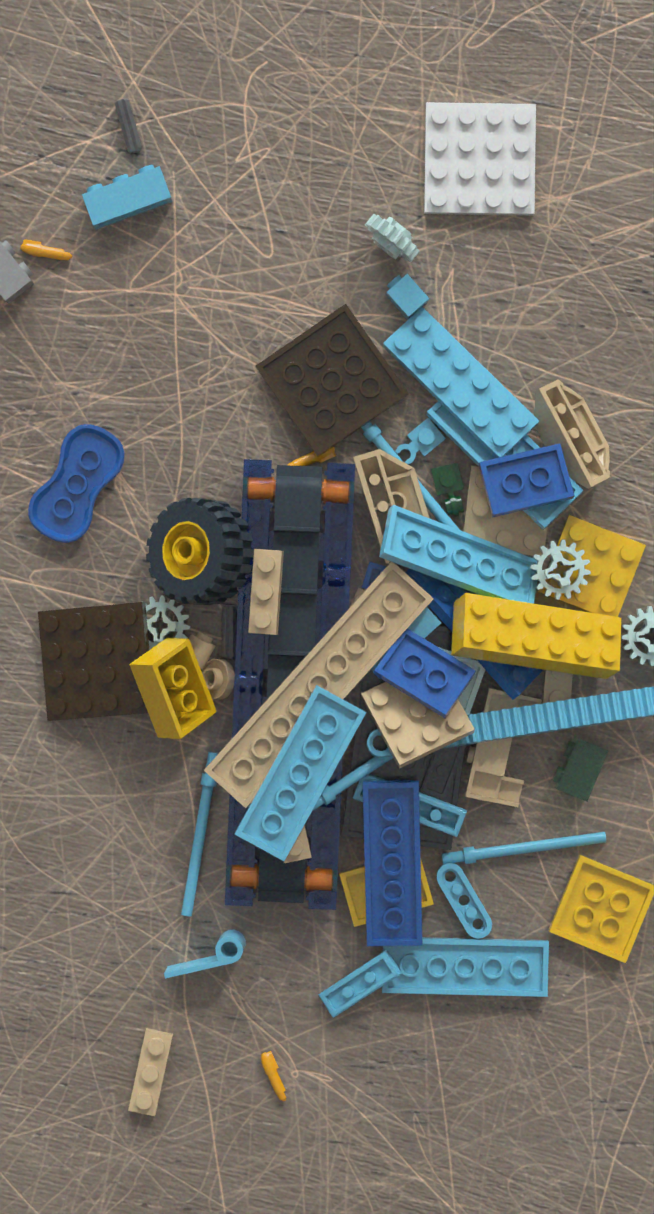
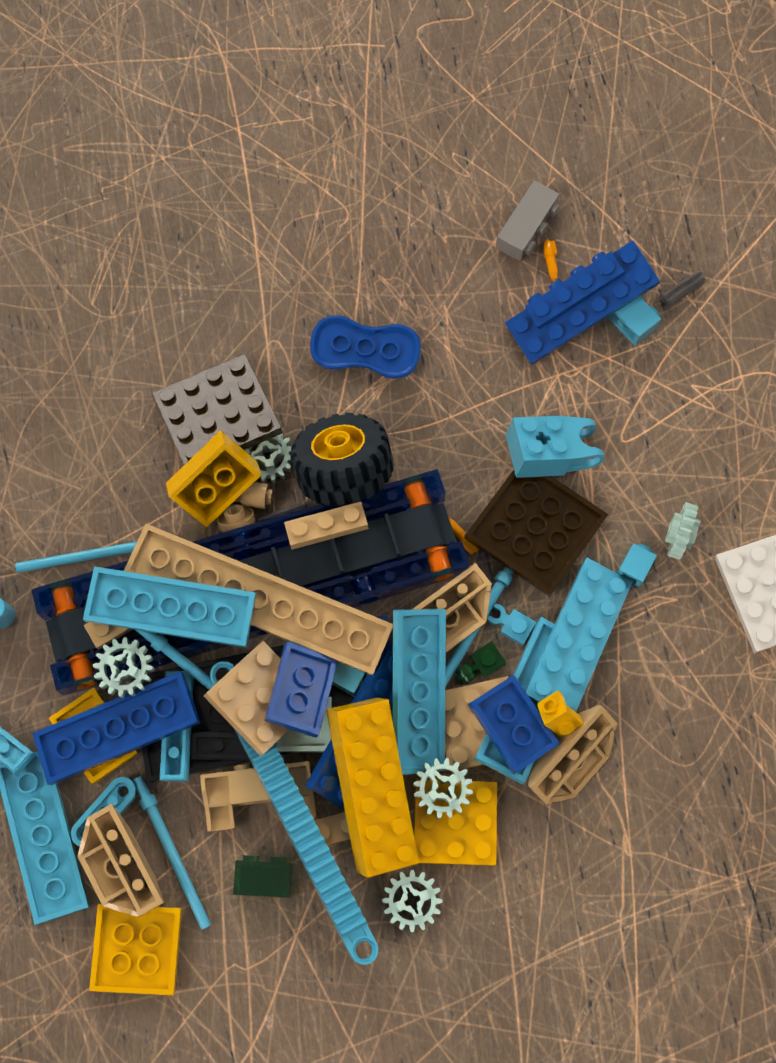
camera: 75 degrees right, 15 degrees down
(111, 240) = (581, 301): none -> blue plate
(255, 334) = (551, 445): none -> medium azure brick
(330, 846) = (127, 657): none -> light aqua gear
(522, 901) = (117, 864): none -> tan wedge
(534, 435) = (558, 715): none -> yellow bracket

